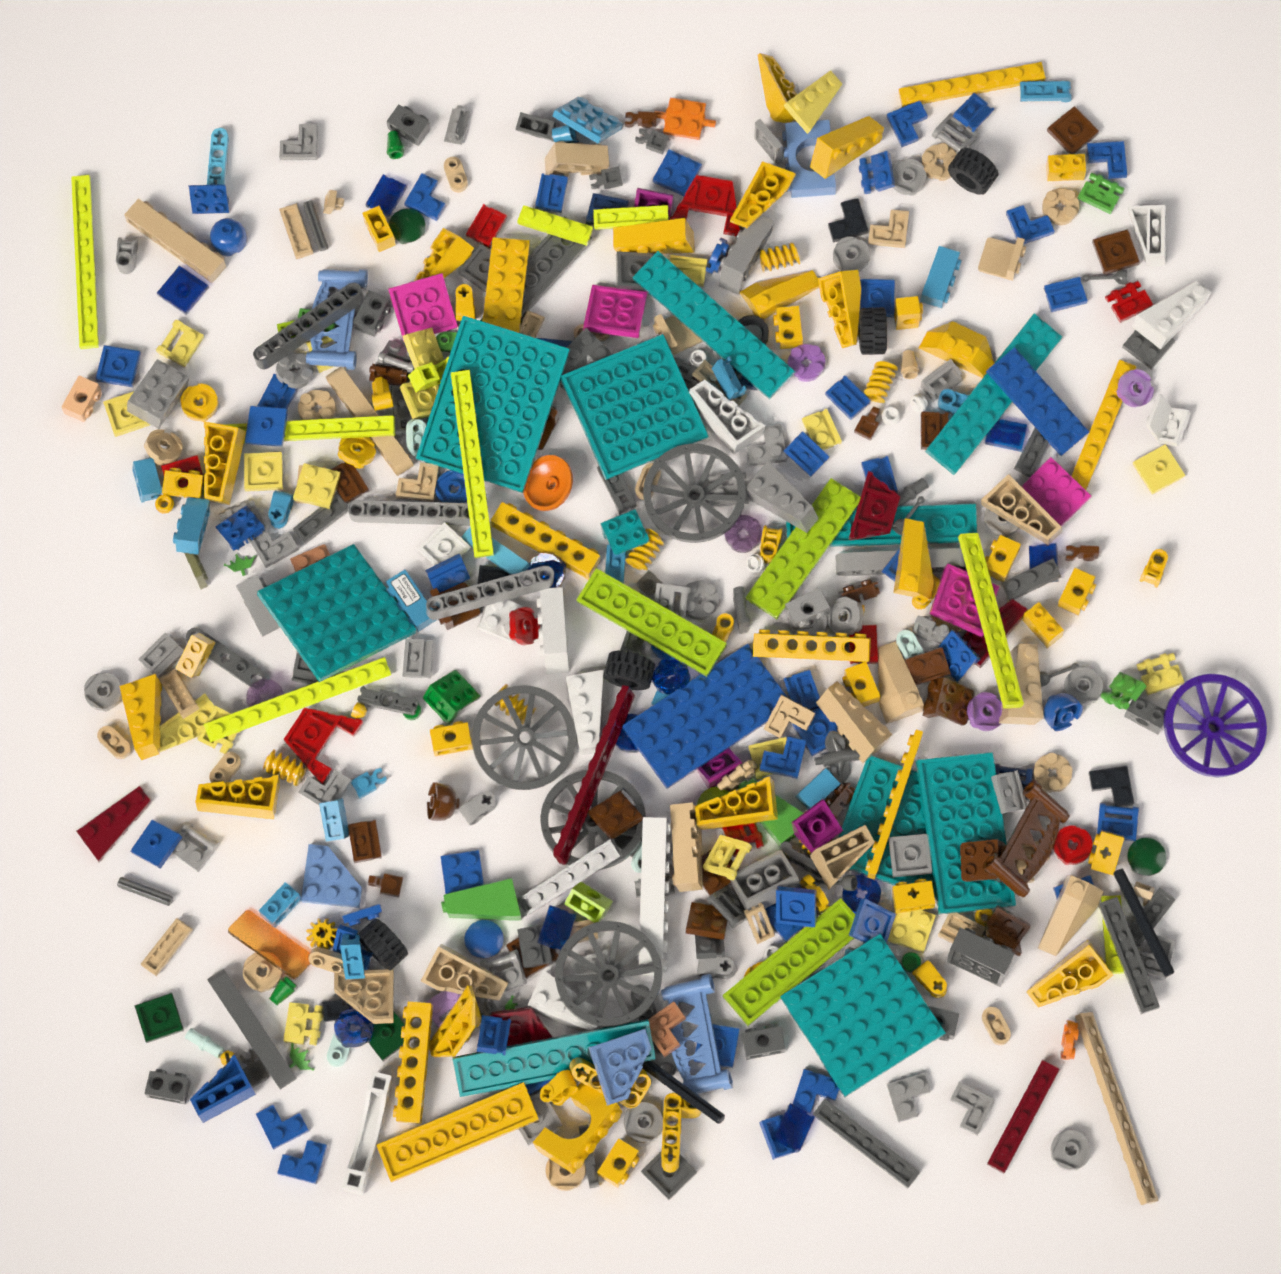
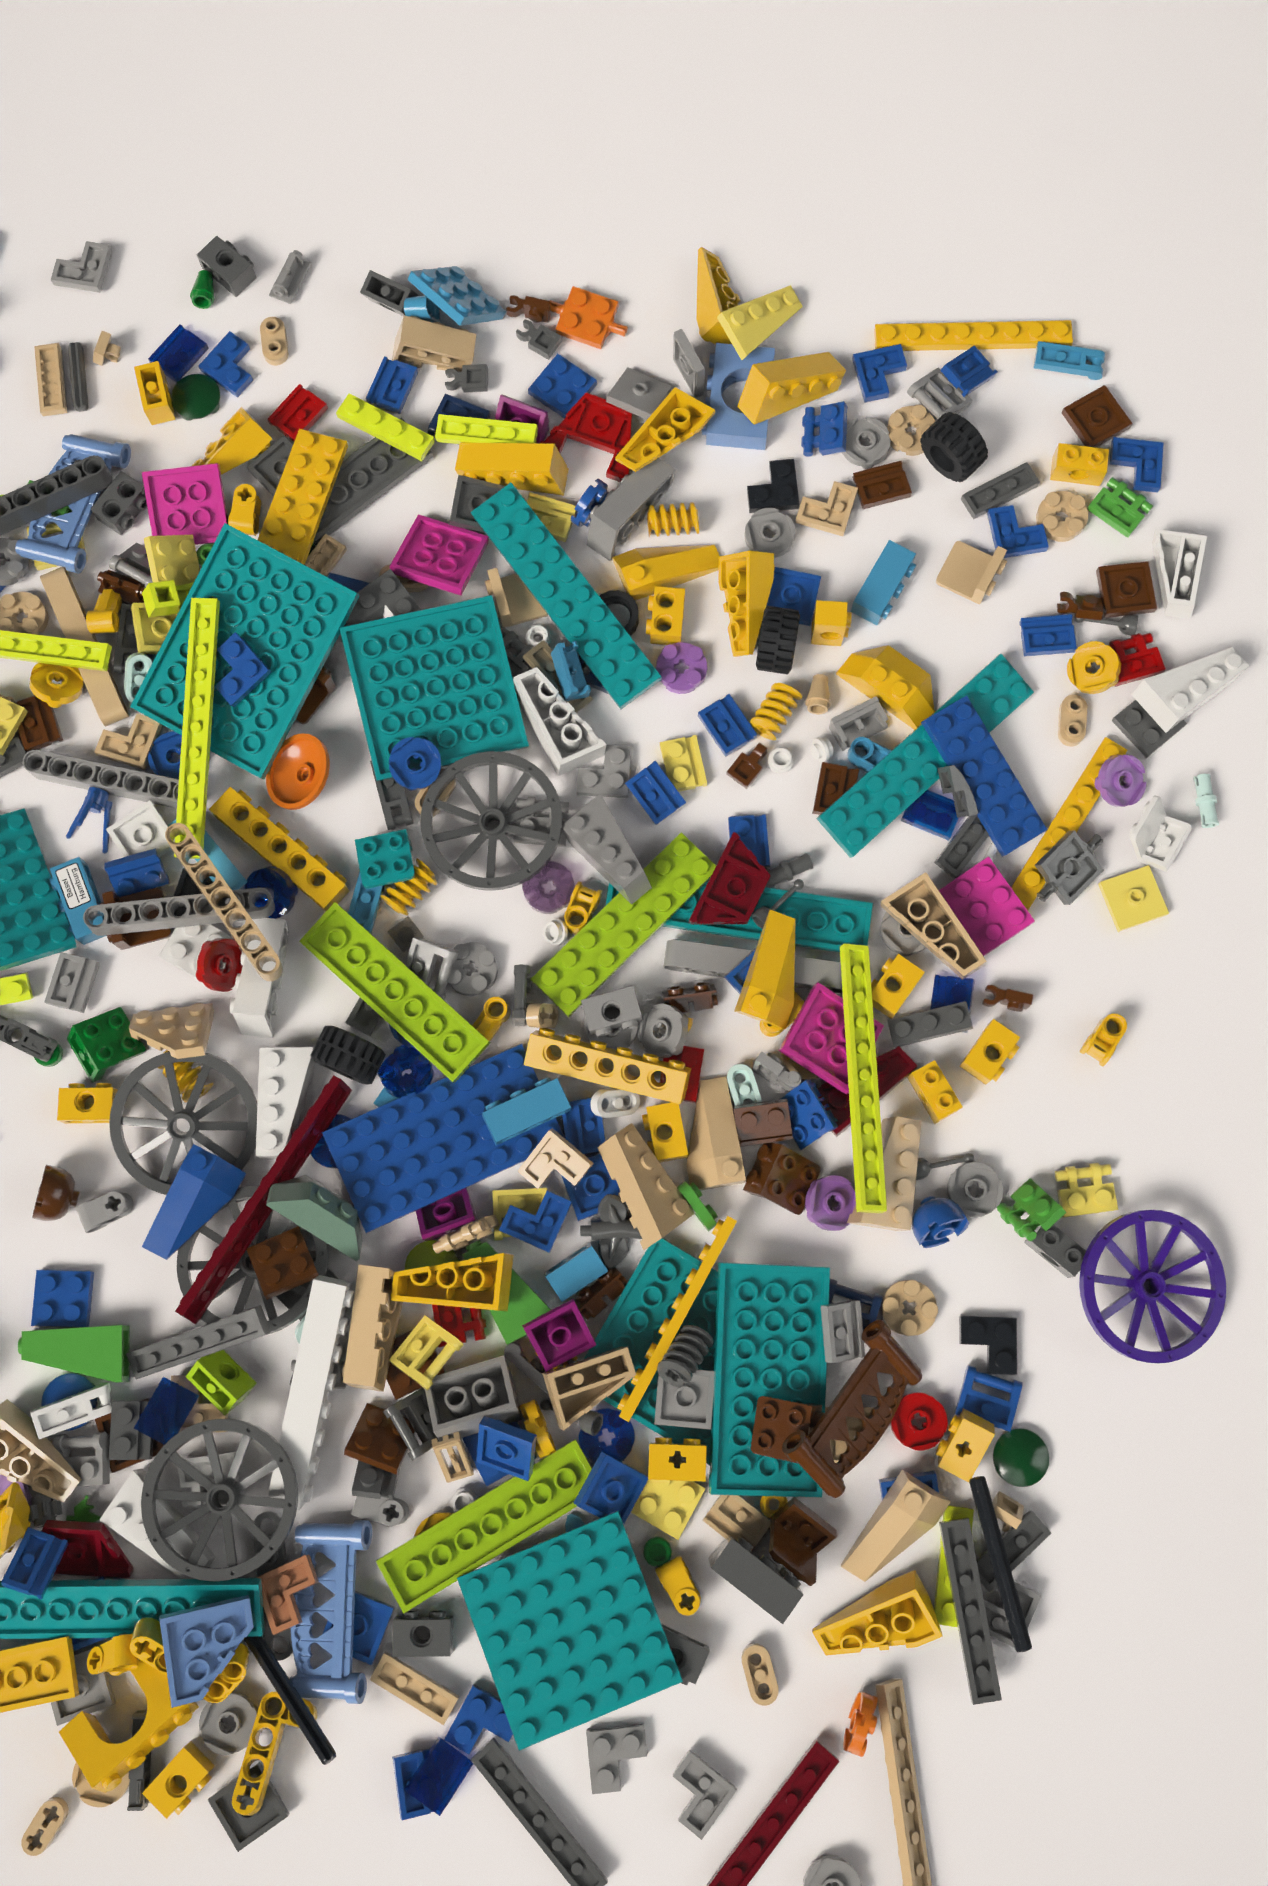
camera: 10 degrees right, 5 degrees up
(404, 530) = (94, 802): none -> blue plant
(490, 940) = (71, 1411): none -> white plate
(499, 417) = (246, 673): none -> blue plate
(508, 673) = (178, 1030): none -> tan plate
(526, 587) = (218, 890): none -> tan beam
(529, 1208) = (50, 1829): none -> tan beam
(547, 779) = (196, 1194): none -> blue wedge
(622, 466) = (416, 748): none -> blue plate
(635, 777) = (319, 1213): none -> sand green wedge
(735, 169) = (638, 393): none -> light grey plate
(758, 620) = (542, 1015): none -> tan beam
(761, 685) = (525, 1110): none -> dark azure brick
(764, 1077) = (414, 1688): none -> tan plate
(822, 670) = (613, 1104): none -> white plate
(899, 735) = (704, 1213): none -> bright green plate
(905, 824) = (684, 1355): none -> dark grey piece
(926, 206) = (882, 485): none -> reddish brown plate
(1012, 195) = (1000, 490): none -> dark grey plate
(1017, 409) = (954, 782): none -> dark grey slope
(1087, 269) = (1083, 606): none -> reddish brown plate
(1093, 350) = (1072, 719): none -> tan plate
(1109, 455) = (1069, 867): none -> dark grey plate
(1112, 314) = (1104, 678): none -> yellow plate
(1198, 392) = (1206, 800): none -> light aqua pin

